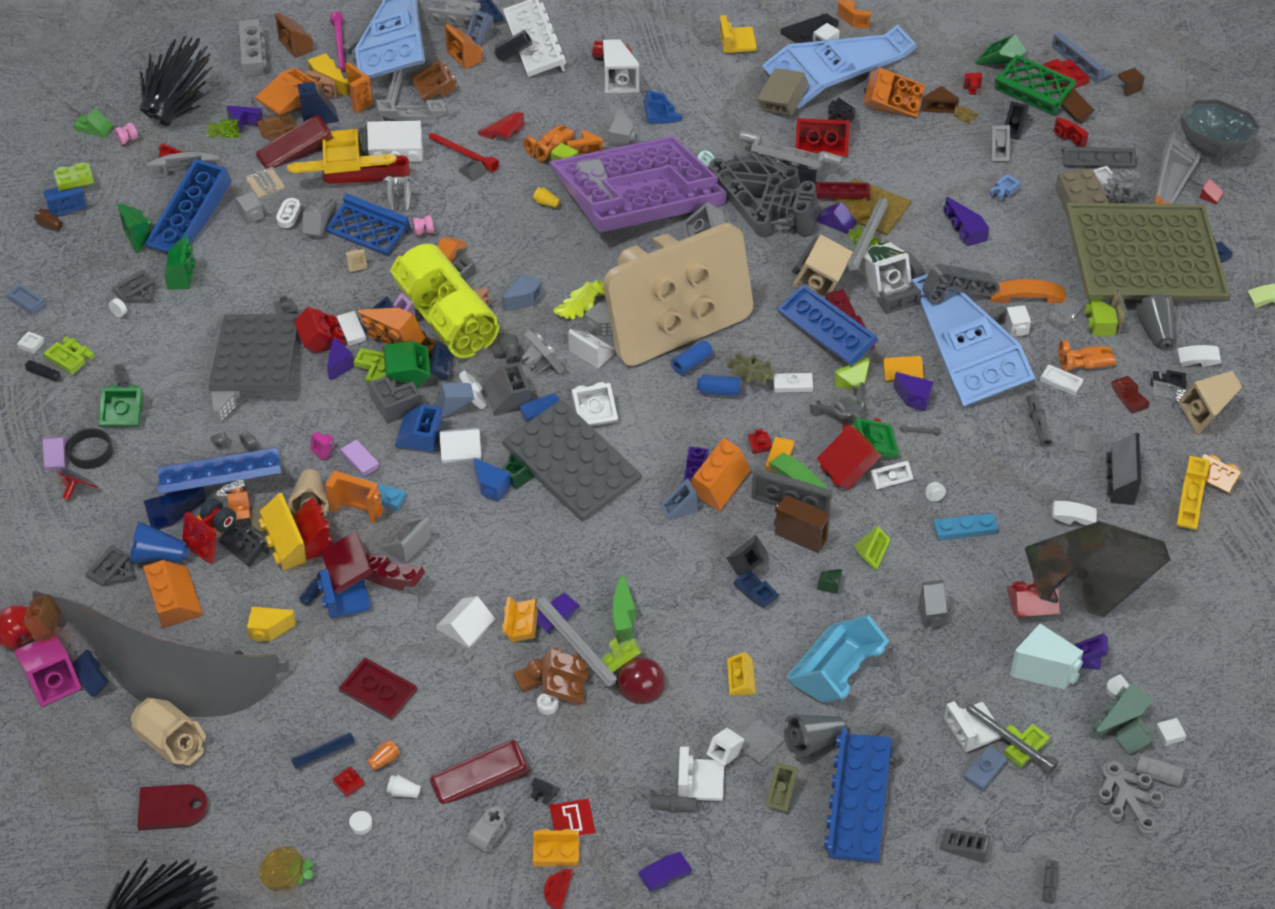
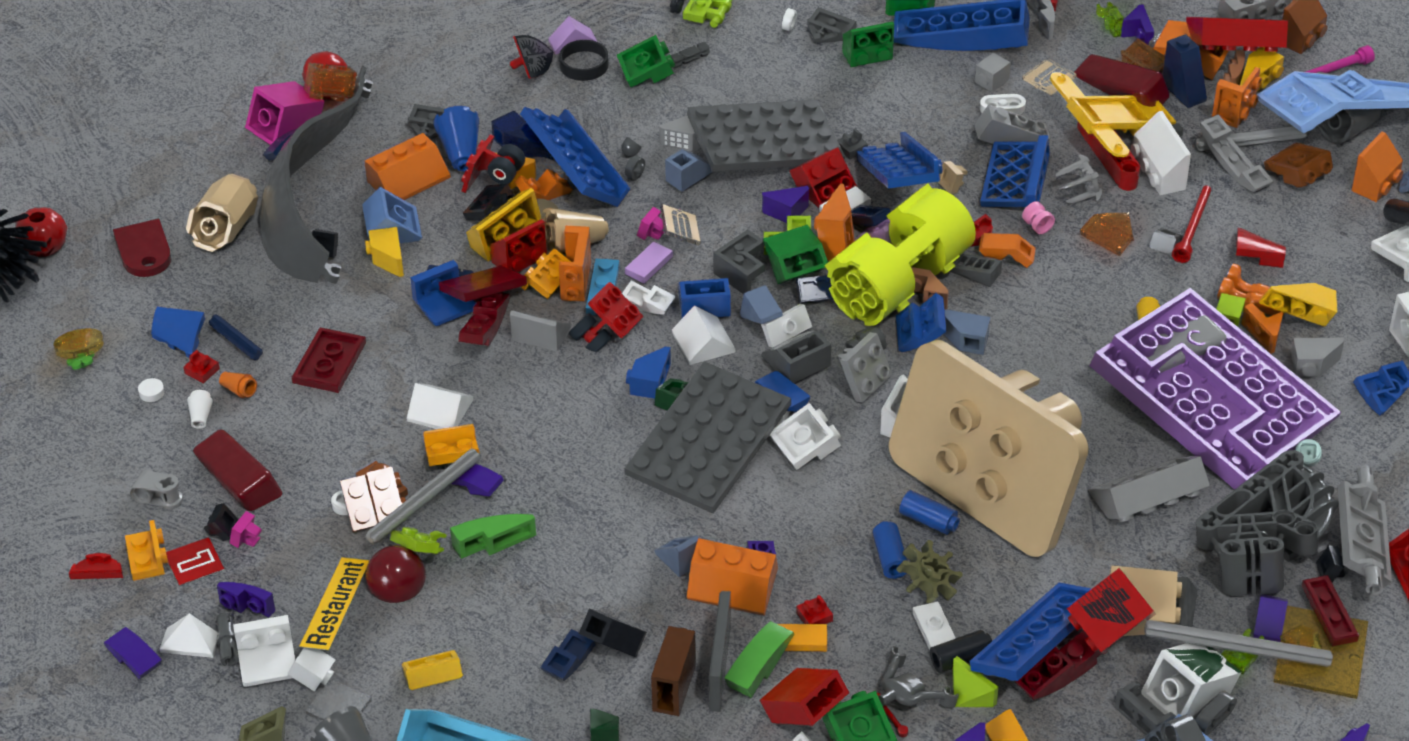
camera: 75 degrees right, 5 degrees down
(112, 872) = (47, 227): none -> red piece
(228, 615) = (389, 211): none -> medium blue slope
(271, 409) = (685, 169): none -> sand blue slope
(295, 790) = (178, 328): none -> blue slope
(300, 61) = (1238, 32): none -> red slope
(330, 427) = (680, 224): none -> piece
(345, 519) = (546, 275): none -> light orange bracket
(347, 273) = (901, 164): none -> blue bracket
(403, 467) = (651, 301): none -> white slope
(423, 489) = (613, 310): none -> red plate
(453, 193) = (1110, 231): none -> clear orange slope
(510, 312) = (920, 324): none -> blue slope
(559, 773) = (245, 531): none -> dark pink tile
(576, 116) = (1303, 301): none -> yellow slope
(632, 786) = (240, 596): none -> dark purple slope
(661, 832) = (190, 638): none -> white slope
(666, 719) = (334, 603): none -> yellow sticker
(823, 372) = (964, 647): none -> black brick
(843, 276) = (1109, 611): none -> red panel

